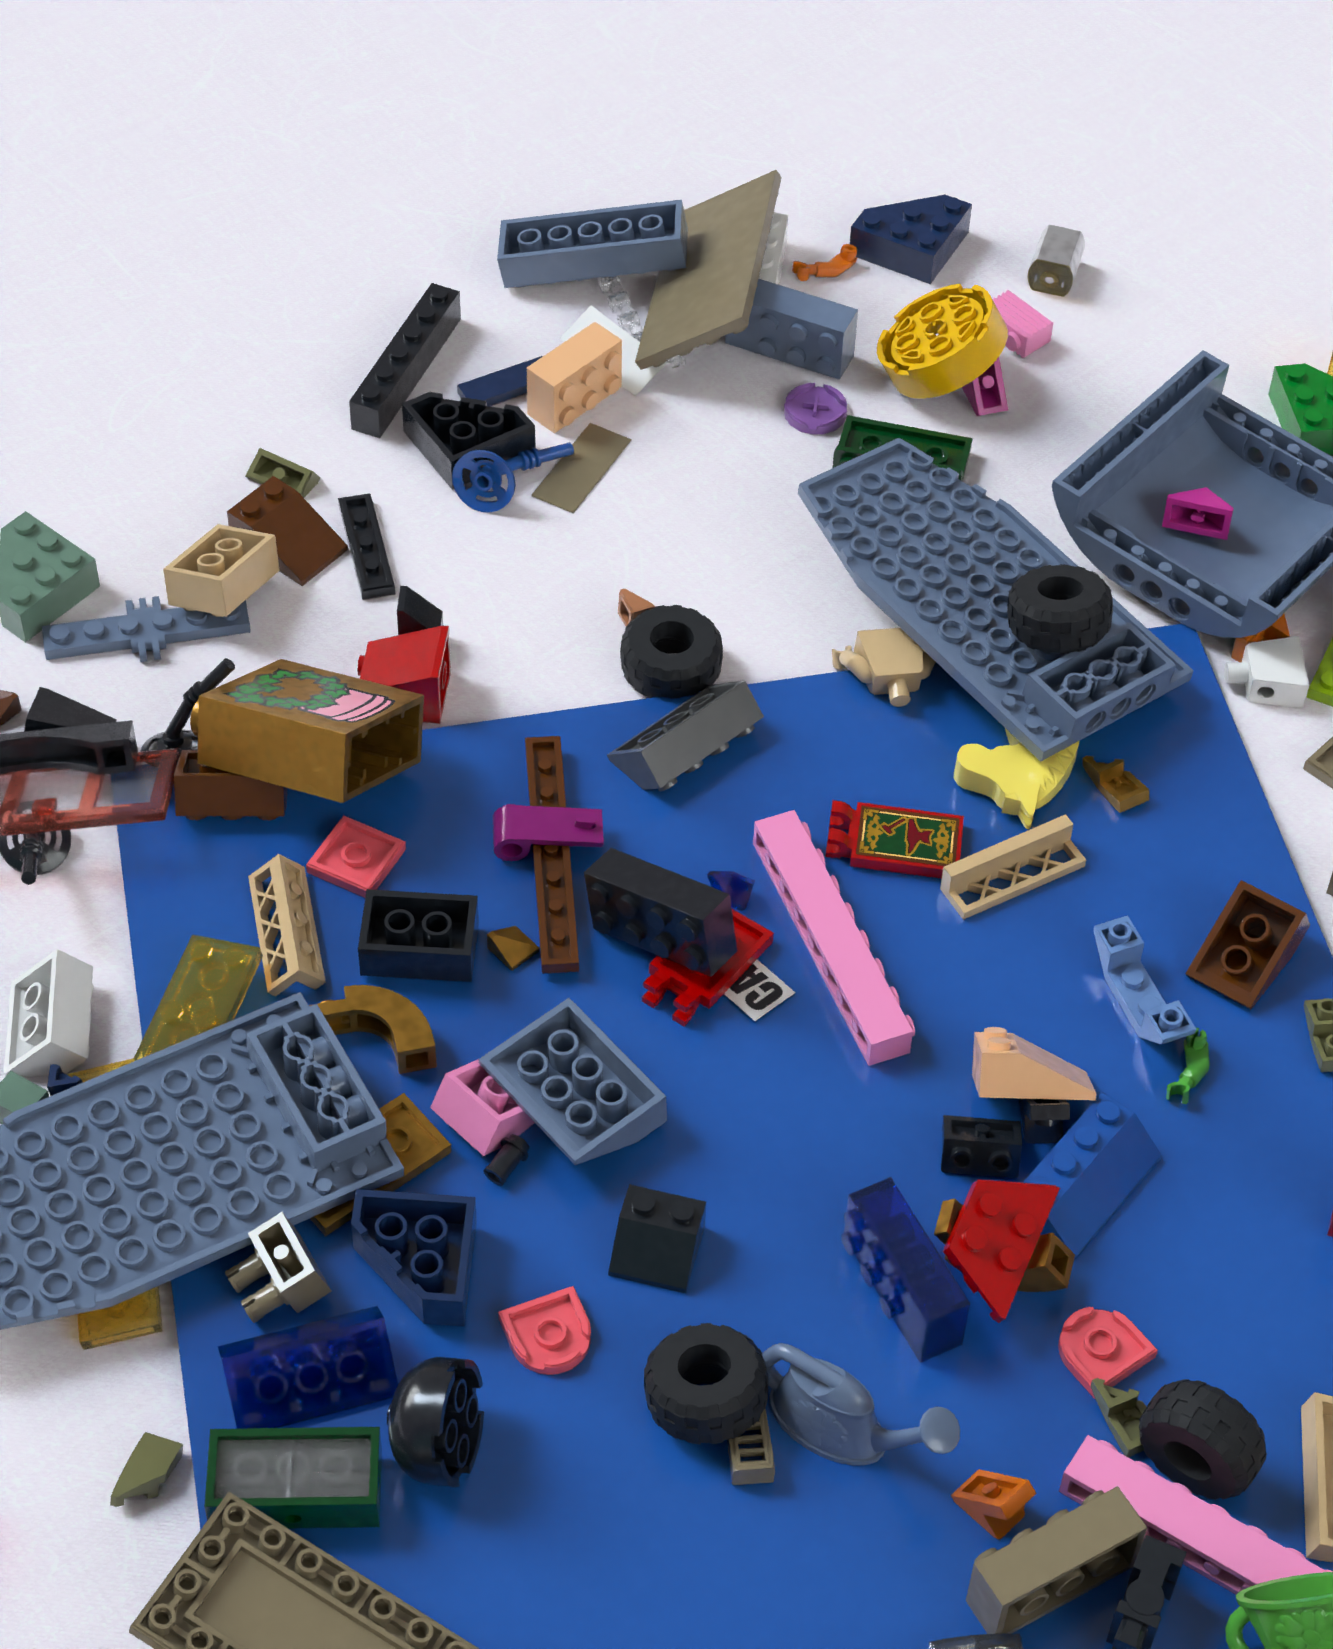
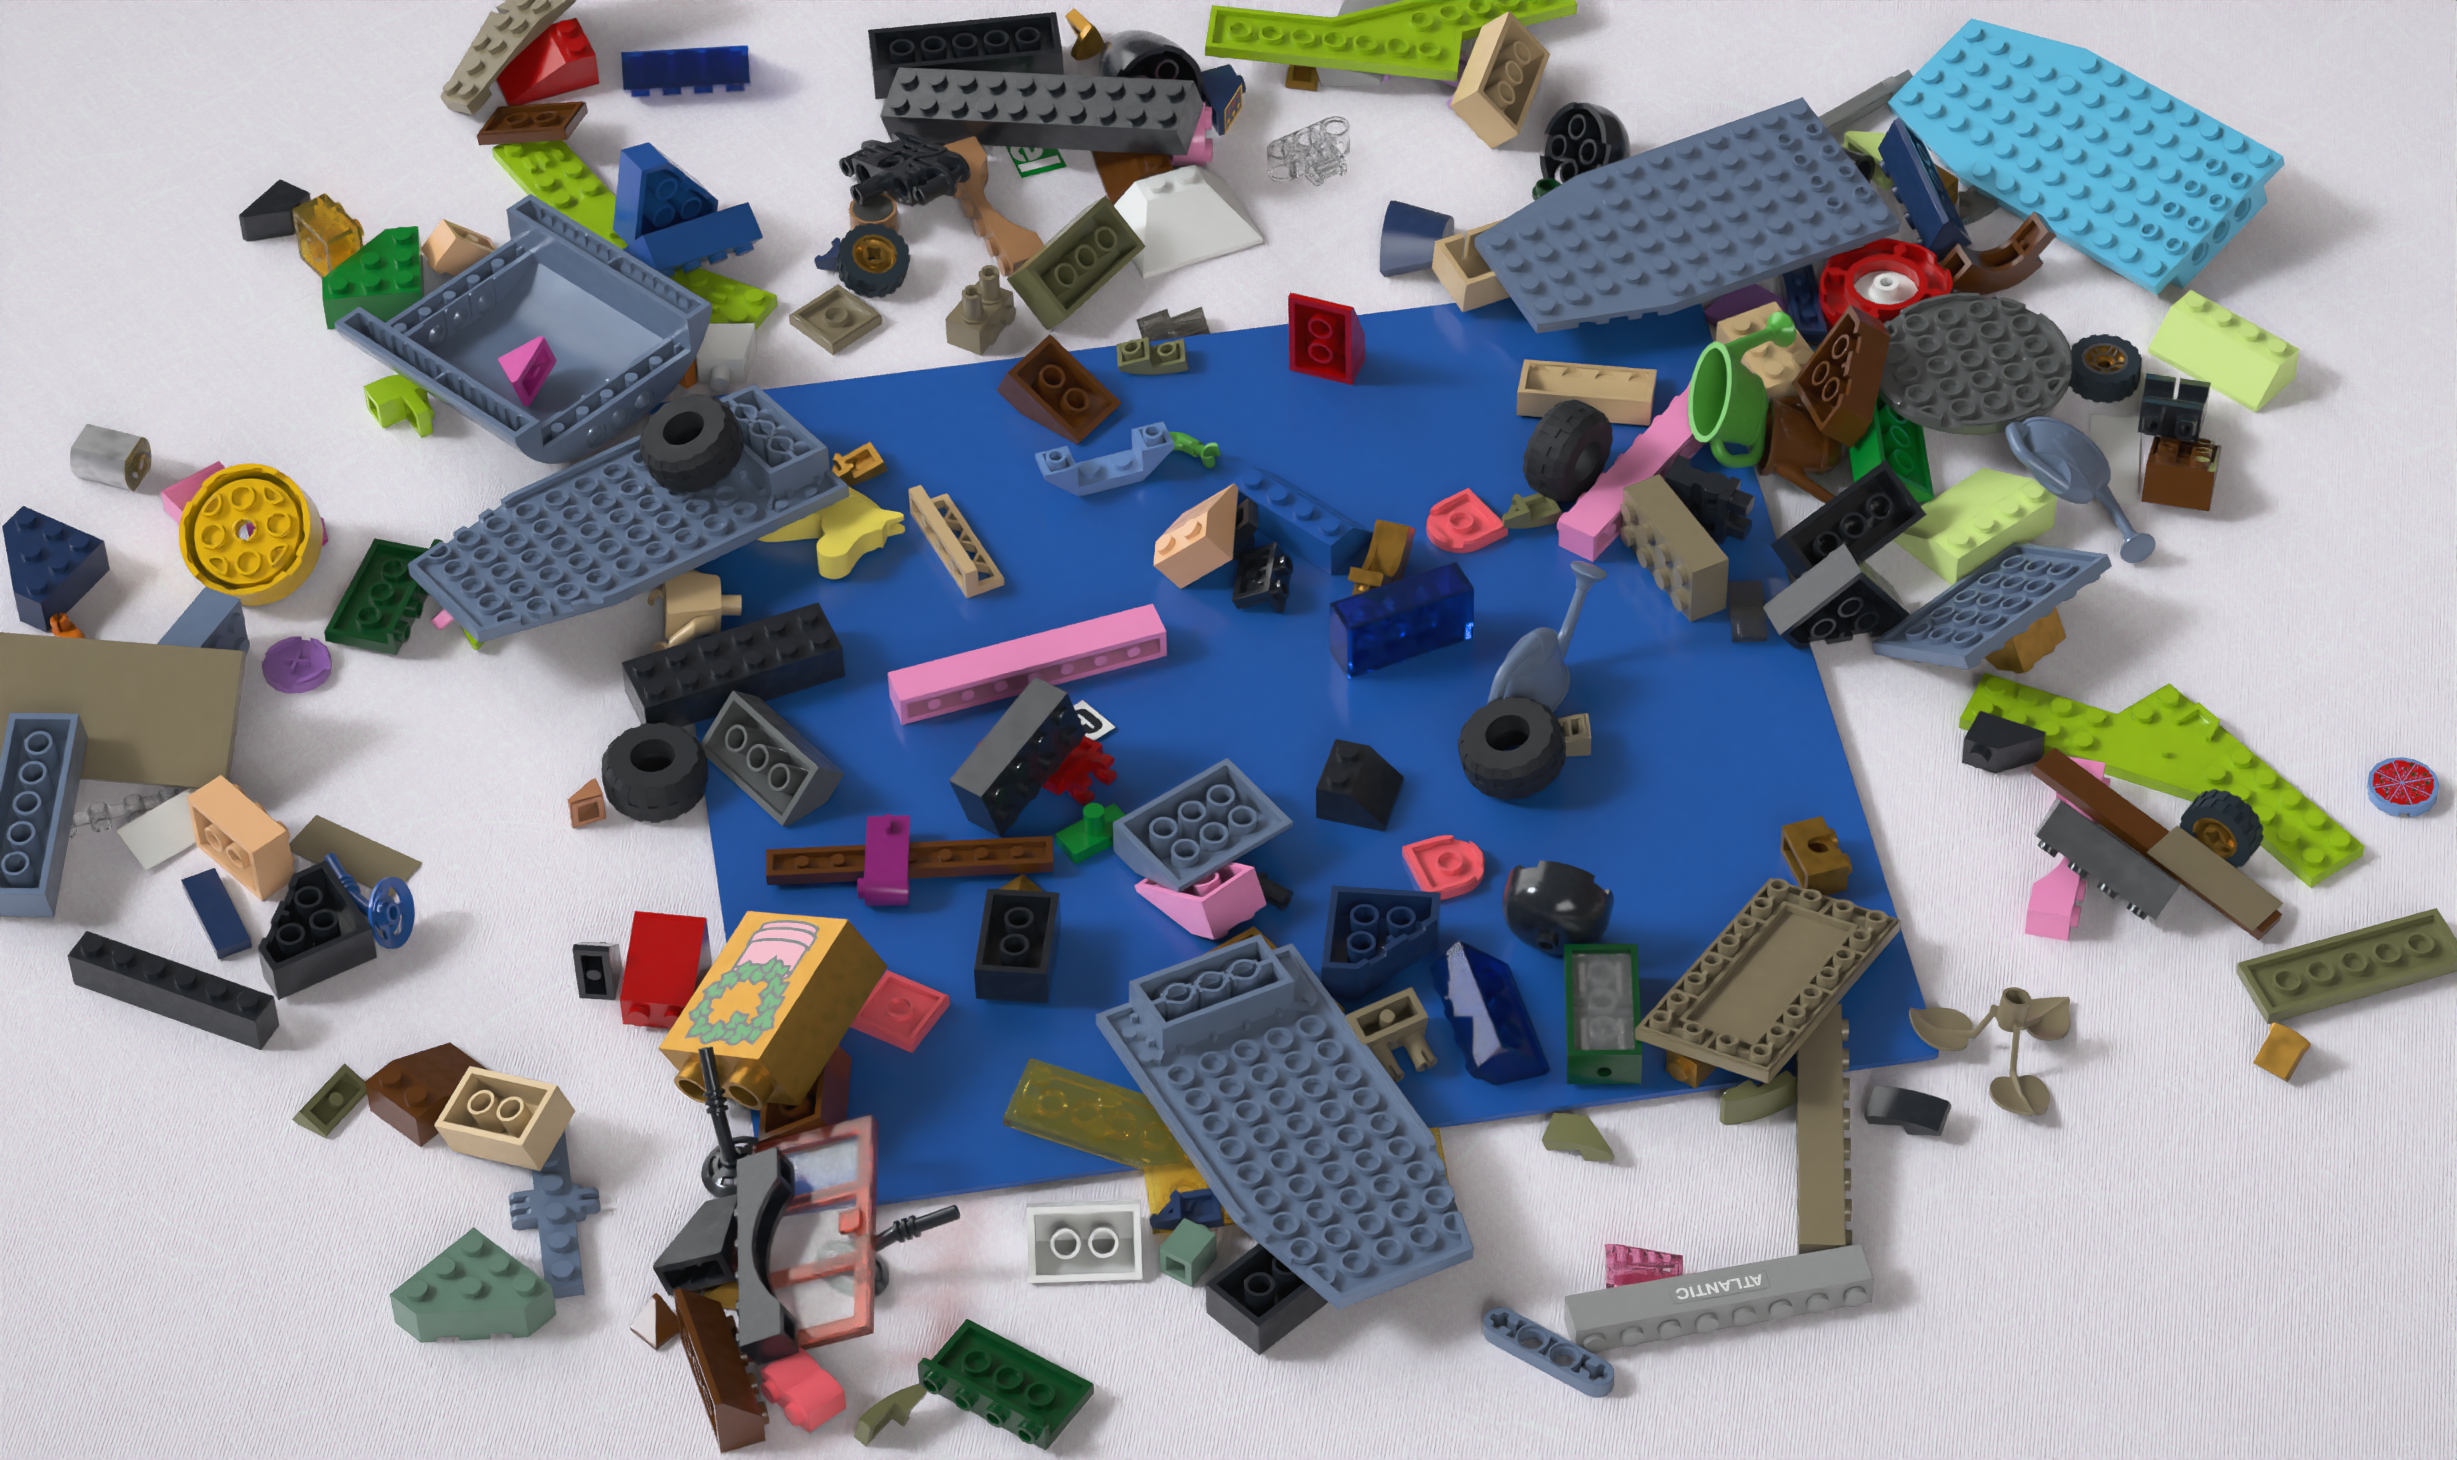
camera: 85 degrees left, 5 degrees down
(294, 920) = (982, 1045): tan fence -> none
(366, 546) = (452, 1026): black tile -> none
(387, 1016) = (1113, 966): pearl gold arch -> none
(598, 1003) = (1091, 833): none -> green tile
(734, 884) = (967, 729): clear blue slope -> none
(805, 699) = (755, 659): none -> black brick
(894, 838) = (911, 616): tile -> none
(994, 1500) = (1611, 595): orange slope -> none
(997, 1237) = (1385, 548): red wing -> none

